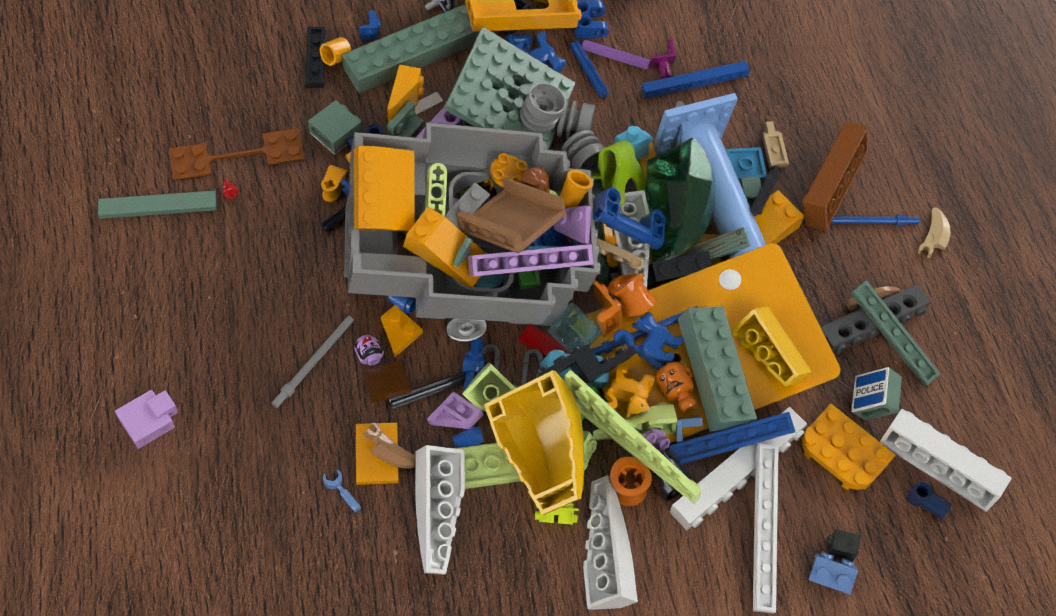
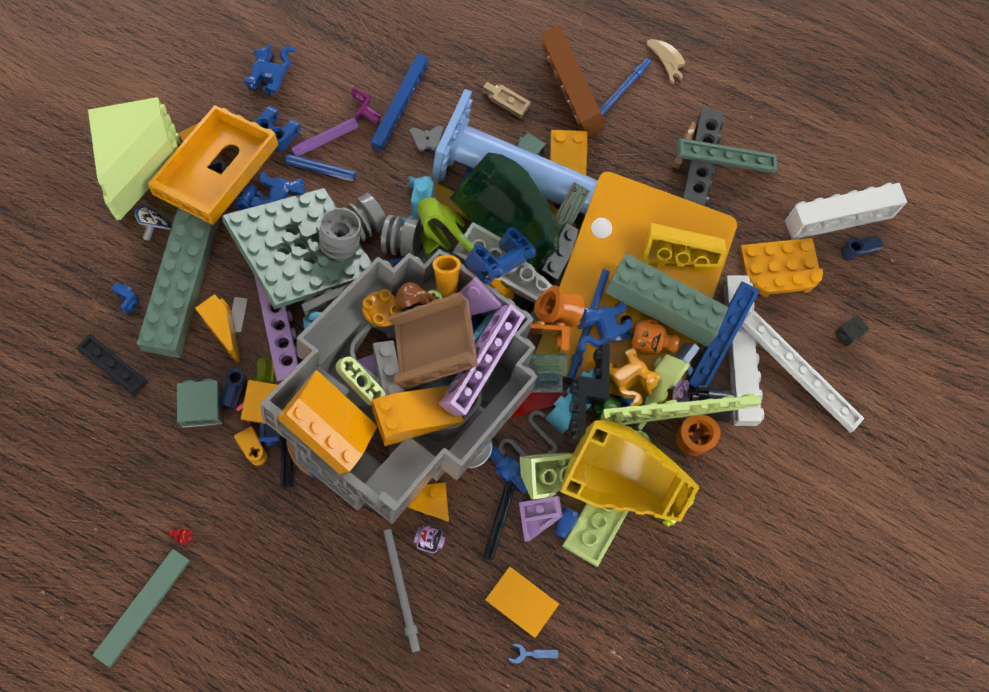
camera: 50 degrees left, 10 degrees up
(195, 161) = (125, 544): dark orange hinge -> none
(332, 51) = (125, 345): light orange piece -> none
(386, 381) = (468, 546): reddish brown tile -> none
(388, 450) = (532, 592): medium nougat piece -> none
(405, 122) = (248, 347): sand green bracket -> none
(438, 498) = (597, 584): white wedge -> none
(463, 251) = (433, 405): sand green bar -> none
(609, 560) = (738, 497): white wedge -> none
(620, 255) = (519, 286): tan hinge -> none
(748, 162) = (505, 127): dark azure tile -> none
(765, 191) = (545, 138): black axle -> none
(833, 572) = (864, 354): medium blue bracket -> none
(876, 394) = (764, 209): piece -> none

